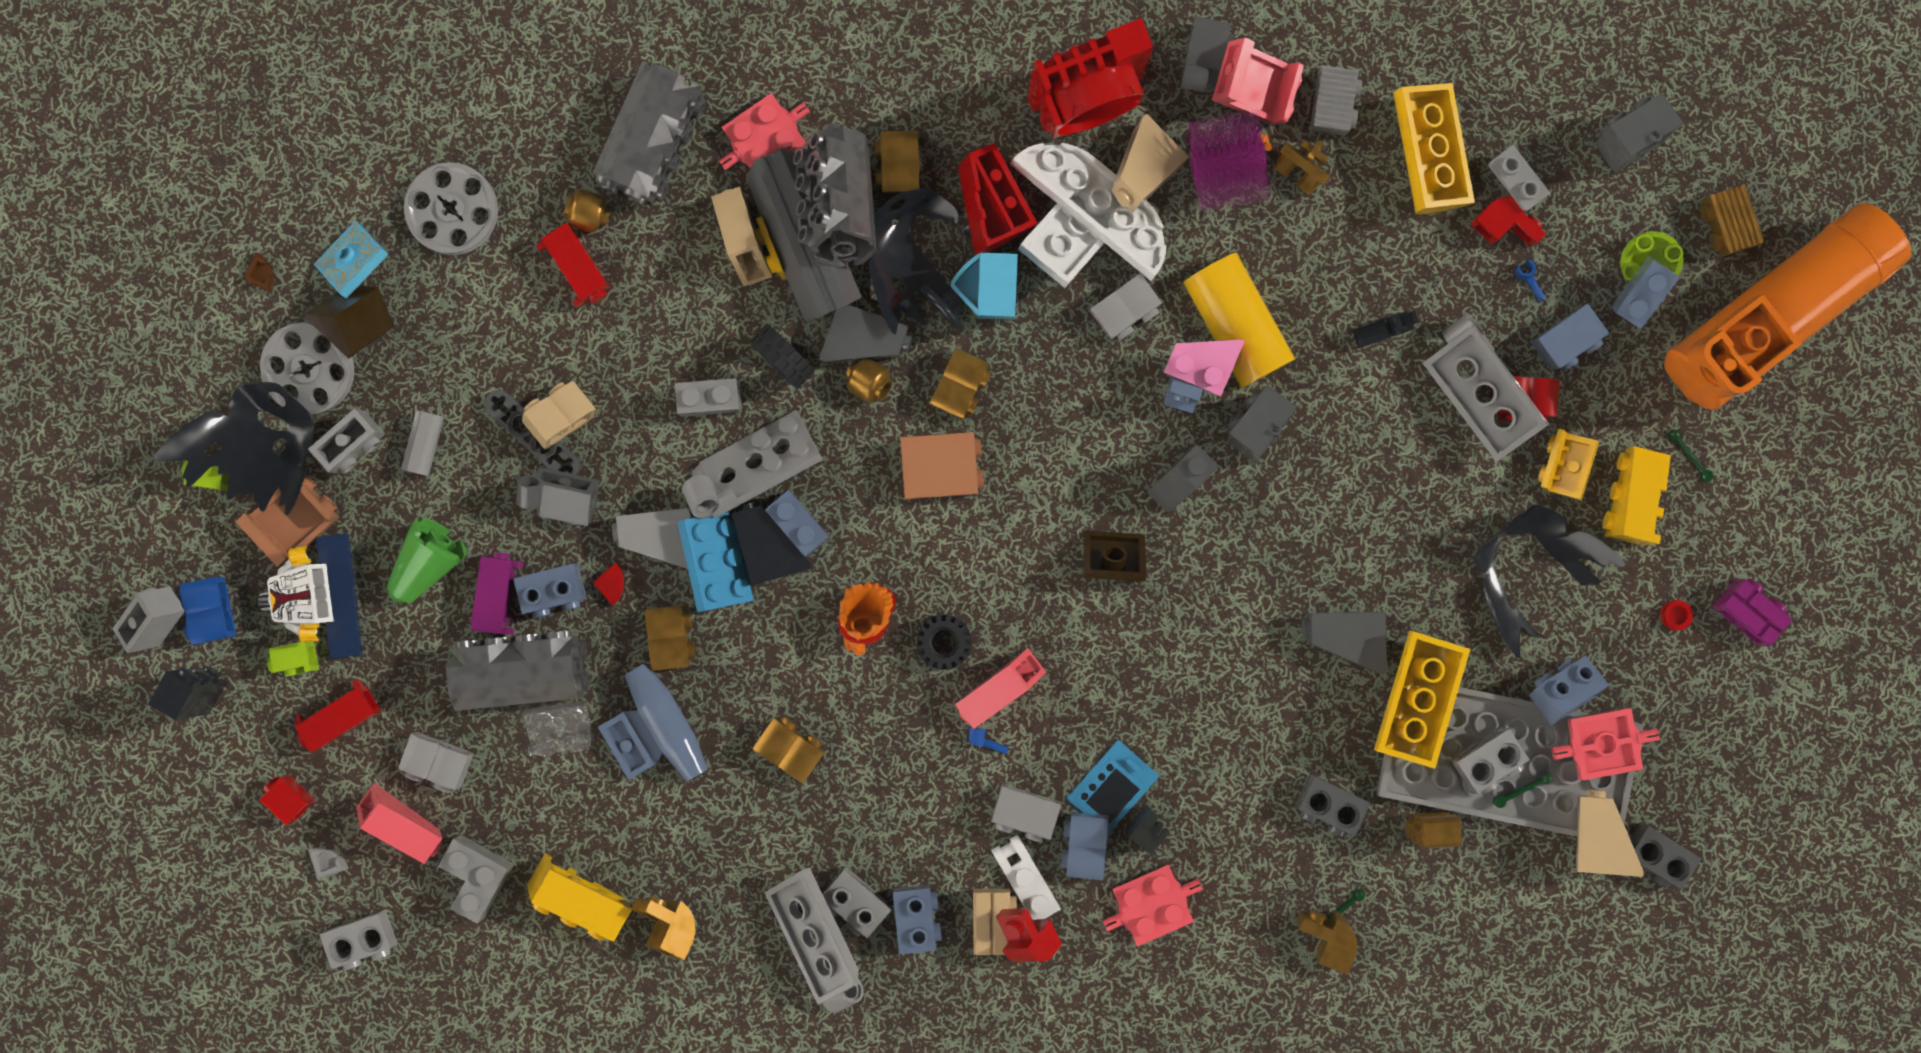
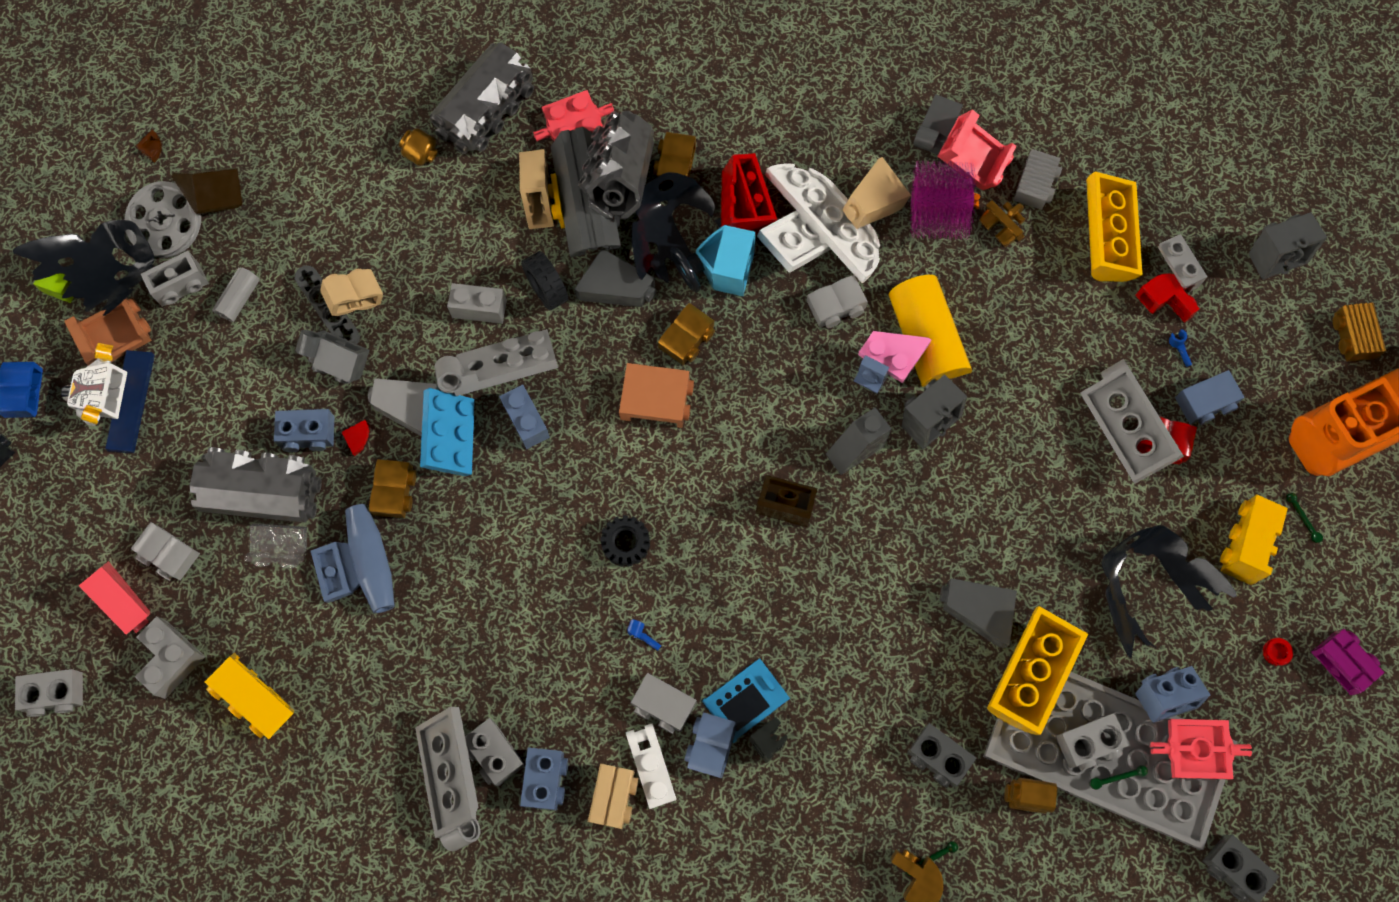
camera: 15 degrees right, 15 degrees down
(286, 799) = (29, 557): red brick -> none
(293, 658) = (74, 441): lime brick -> none
(326, 862) = (45, 620): light grey tile -> none
(336, 718) = (94, 498): red brick -> none
(350, 259) = (223, 146): medium azure plate -> none
(423, 560) = (205, 383): bright green cone -> none
(436, 210) = (306, 135): light grey wedge -> none
(494, 594) = (256, 422): magenta brick -> none
(575, 265) = (398, 184): red brick -> none
(673, 926) = (326, 737): brick -> none
(765, 546) = (493, 431): black slope -> none
(789, 749) = (469, 604): pearl gold brick -> none
(865, 615) = (562, 502): orange hair -> none
(868, 380) = (612, 317): pearl gold head -> none
(1000, 689) = (664, 589): coral slope -> none
(1027, 938) = (638, 816): red brick -> none
(1091, 81) = (842, 115): red hose -> none
(1152, 905) = (760, 814): coral plate -> none
(1380, 330) = (1046, 362): black bar -> none
(1568, 465) = (1195, 501): yellow bracket -> none
(1603, 839) = (1189, 835): tan slope -> none
(1645, 292) = (1279, 370): sand blue brick -> none
(1652, 244) = (1289, 349): lime dish -> none

